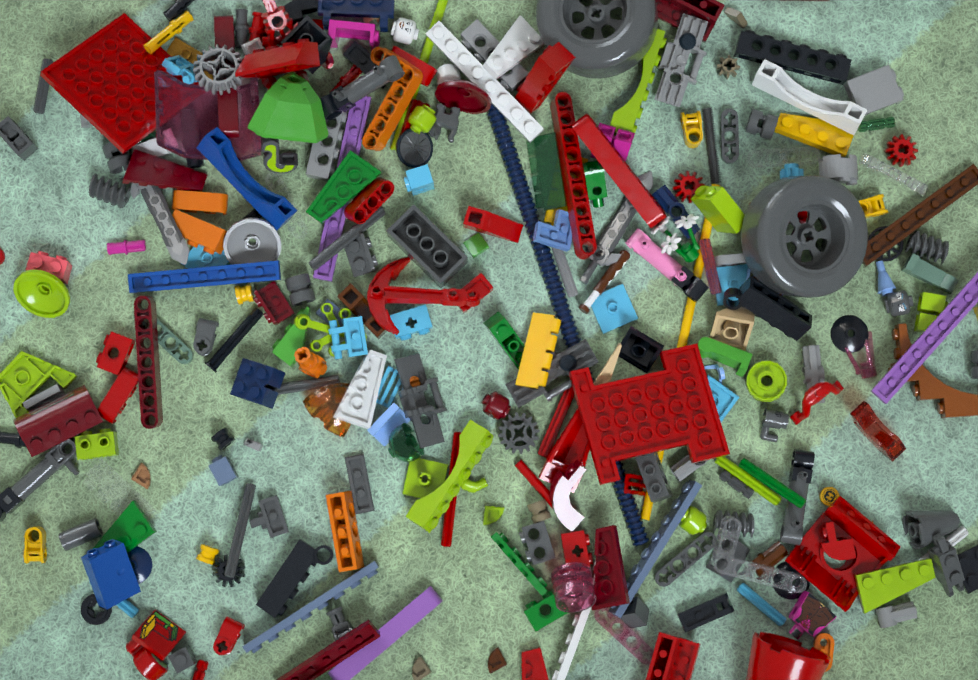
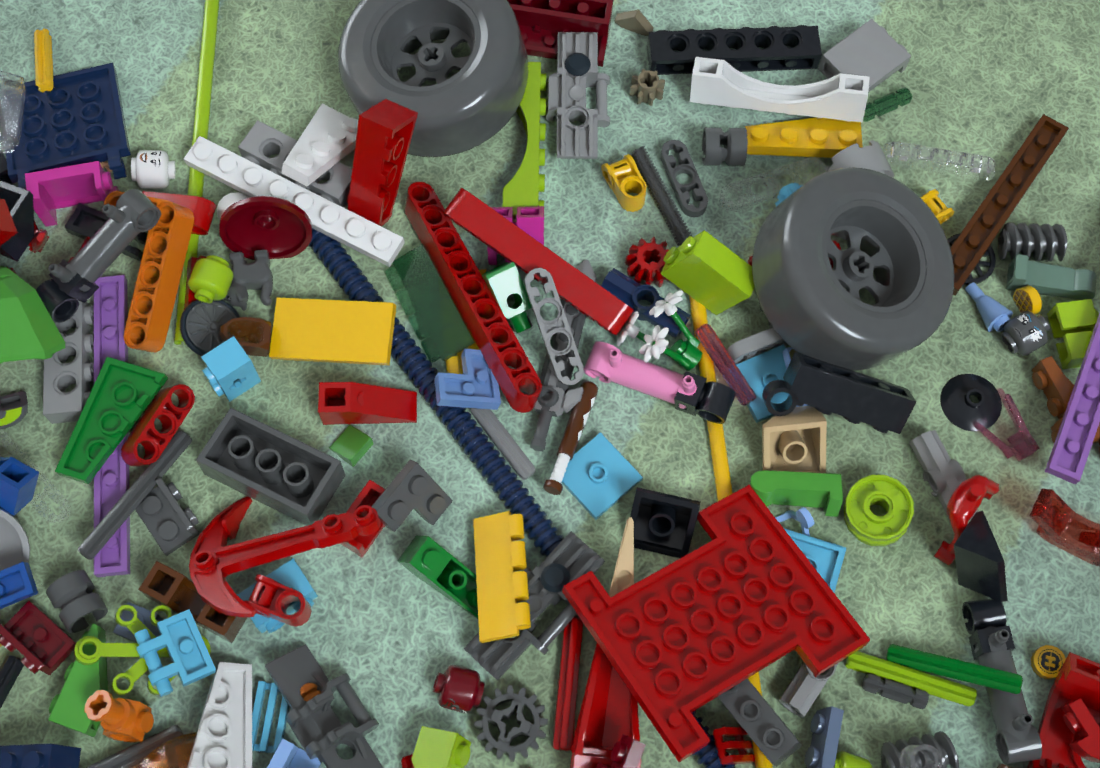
camera: 20 degrees left, 15 degrees down
(408, 325) = (272, 599): none -> red piece
(436, 160) = (251, 334): none -> rock
(485, 172) = (333, 331): none -> yellow tile
(501, 286) = (411, 491): none -> dark grey plate
(615, 214) = (558, 325): none -> light grey beam
(773, 419) = (915, 566): dark grey piece -> none
(809, 428) = (980, 560): none -> black slope
(900, 143) = (936, 125): red gear -> none
(909, 283) = (1027, 299): none -> yellow tile

